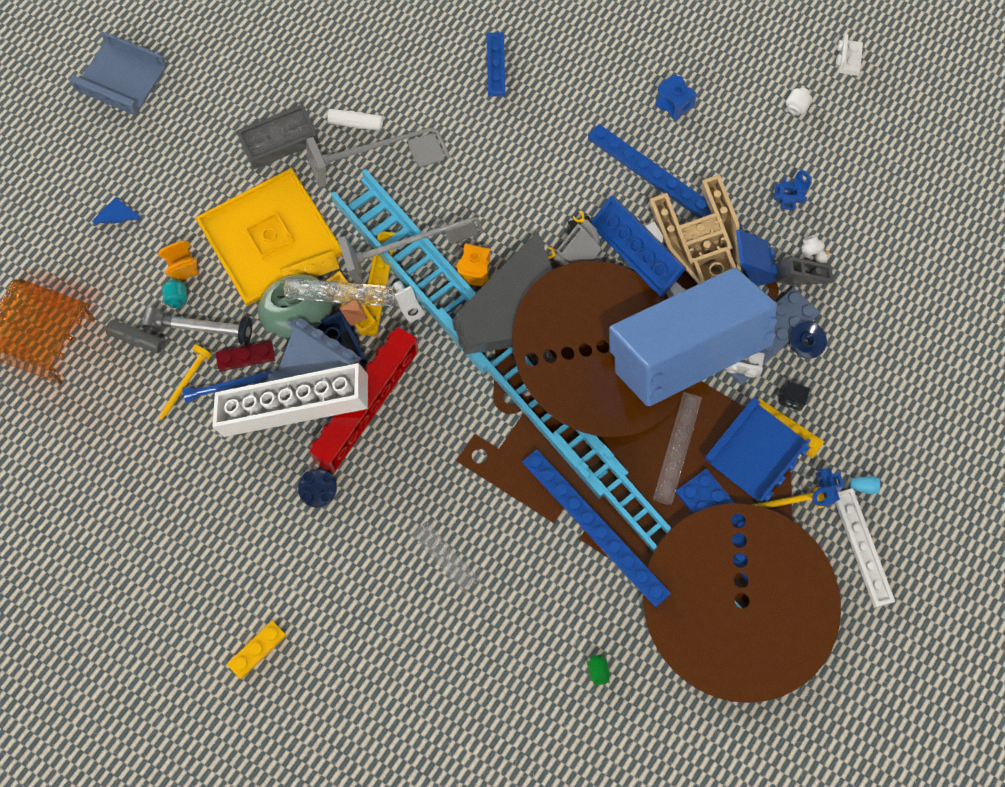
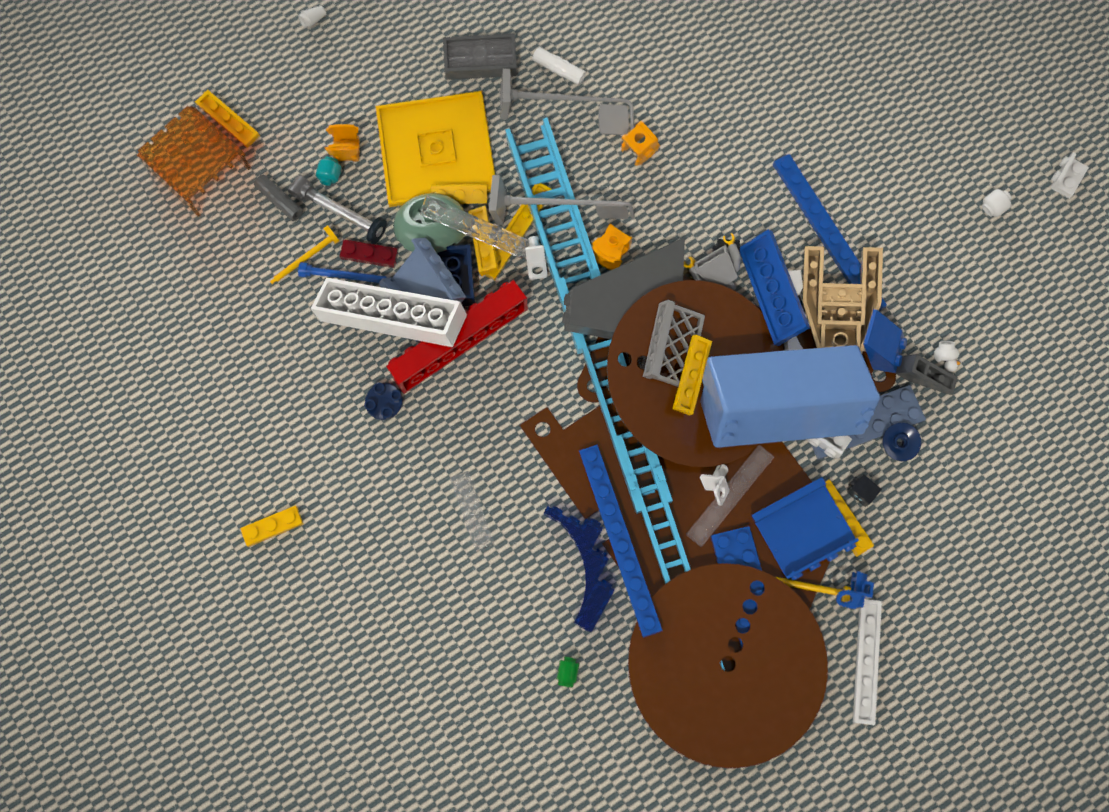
camera: 25 degrees right, 5 degrees up
(53, 280) = (227, 118): none -> yellow plate
(97, 157) = (311, 16): none -> white cone
(115, 213) = (306, 75): blue tile -> none
(353, 312) = (480, 250): nougat slope -> none
(467, 166) = (642, 150): none -> light orange piece
(496, 64) = (714, 59): blue plate -> none
(558, 329) = (660, 337): none -> light grey fence
(594, 585) = (596, 593): none -> clear blue arch
(599, 350) = (692, 375): none -> yellow plate
(661, 440) = (717, 483): none -> white bracket
(675, 97) = (875, 154): blue piece -> none
(798, 186) = (957, 287): blue piece -> none
(866, 484) = (897, 603): medium azure cone -> none

